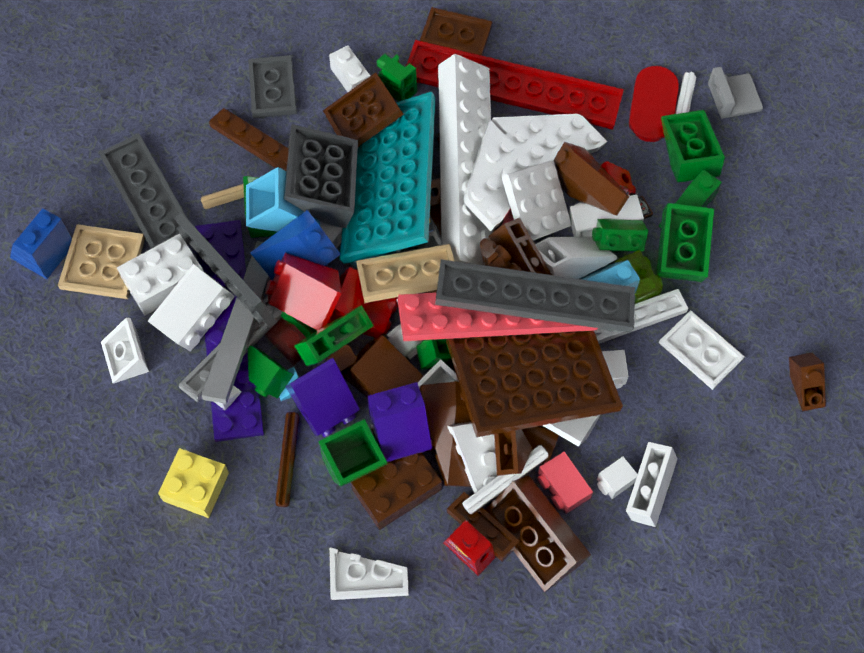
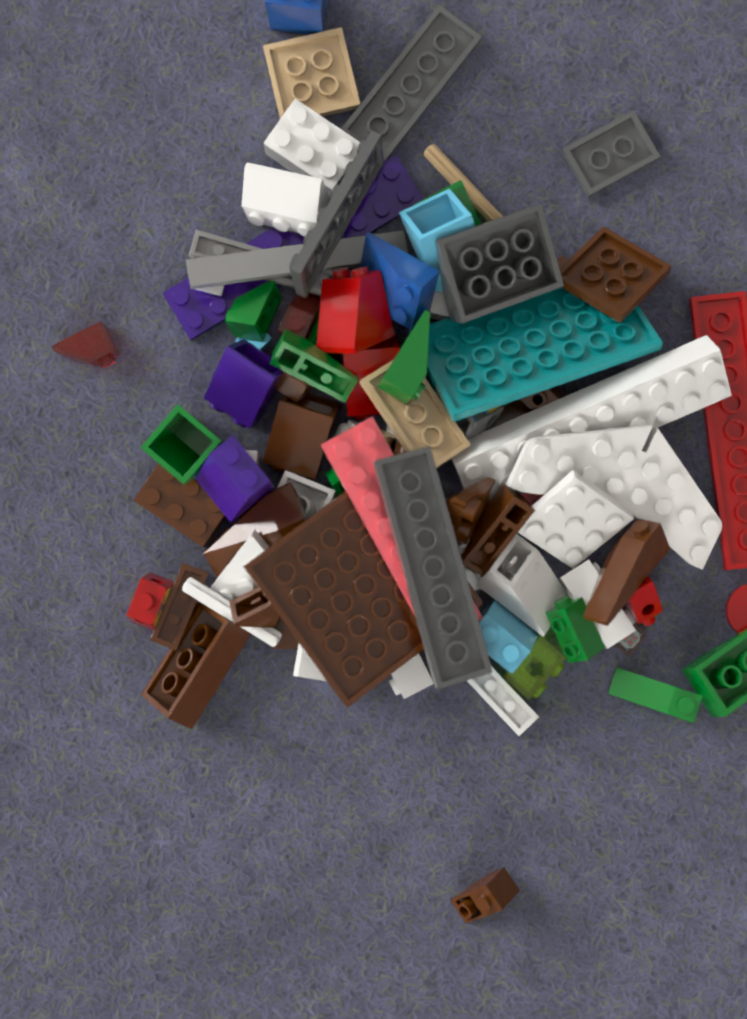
camera: 70 degrees right, 20 degrees up
(124, 352) = (218, 155): white slope -> none
(193, 483) = (105, 294): light yellow brick -> none
(230, 514) = (89, 346): none -> clear red slope
(250, 138) = (530, 160): reddish brown plate -> none
(287, 459) = (170, 377): reddish brown axle -> none
(347, 68) = (668, 231): white brick -> none
(364, 578) = (81, 508): white wing -> none
(367, 256) = (409, 367): none -> green slope
(398, 79) = (673, 299): green hips -> none
(564, 483) = (259, 673): coral brick -> none
(616, 478) = (286, 725): white brick -> none
(651, 484) = (292, 765): white brick -> none
(685, 242) = (595, 706): green brick -> none
(701, 349) = (478, 766): white tile -> none

